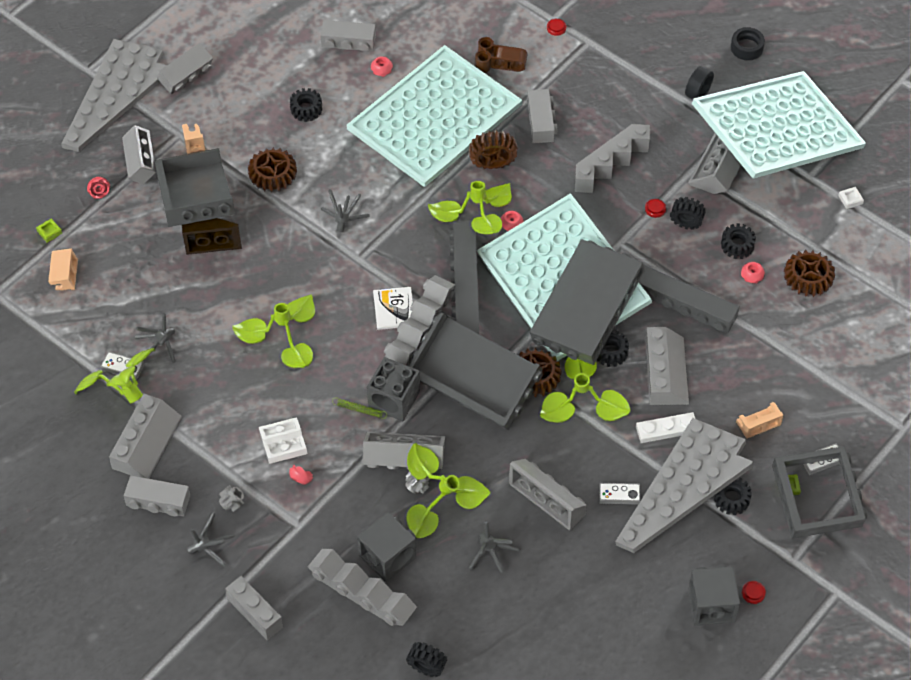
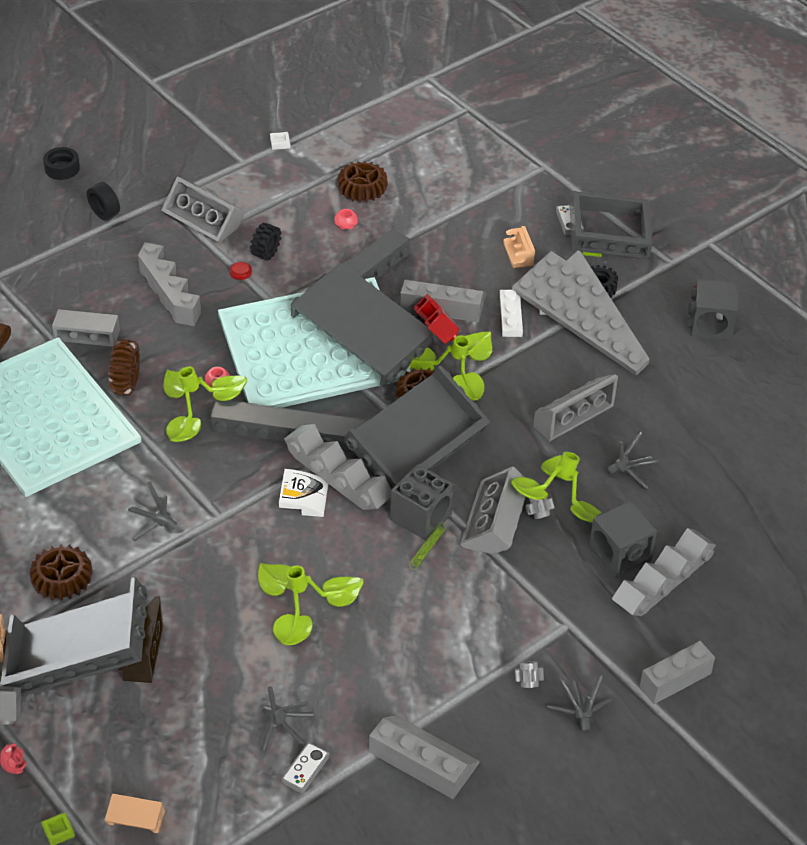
camera: 80 degrees left, 10 degrees down
(128, 387) = (362, 734): lime plant -> none
(157, 496) = (510, 750): light grey brick -> none
(283, 440) = (455, 620): white slope -> none
(300, 475) = (509, 608): coral plate -> none
(426, 659) = (760, 529): black tyre -> none
(619, 493) = (580, 360): tile -> none
(629, 357) = (437, 319): none -> red arch
(738, 249) = (306, 219): black tyre -> none
(778, 124) = (186, 155): light aqua plate -> none

